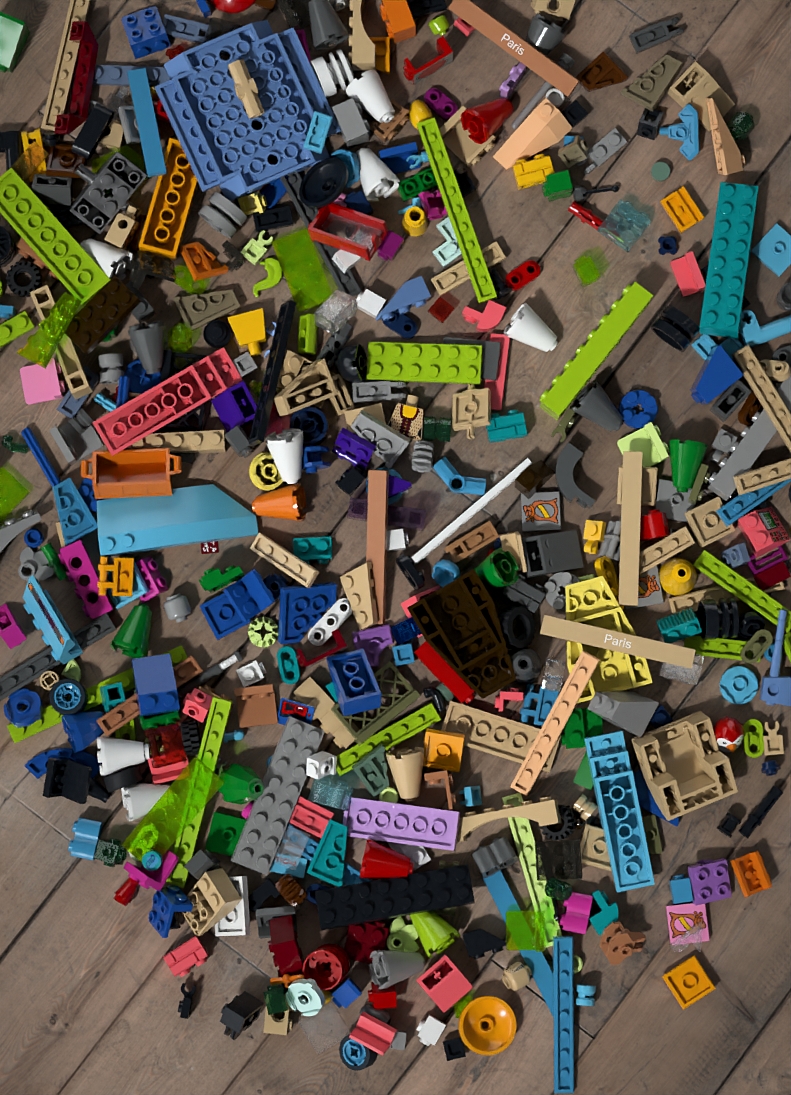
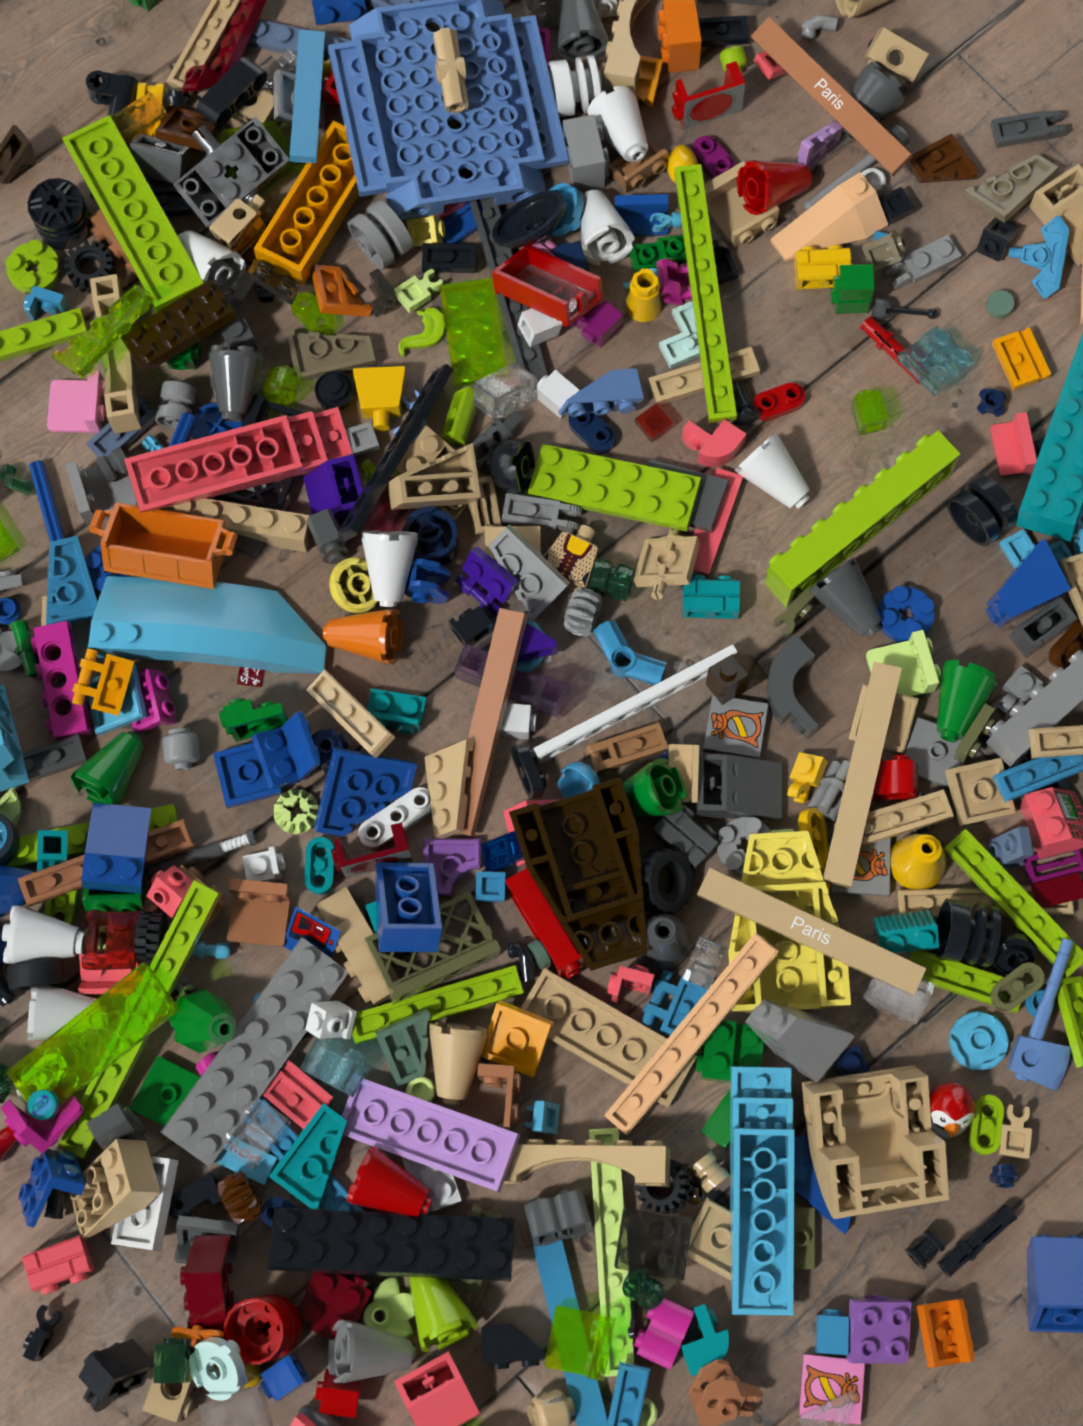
camera: 10 degrees right, 10 degrees down
(317, 132) = (535, 148): medium azure plate -> none

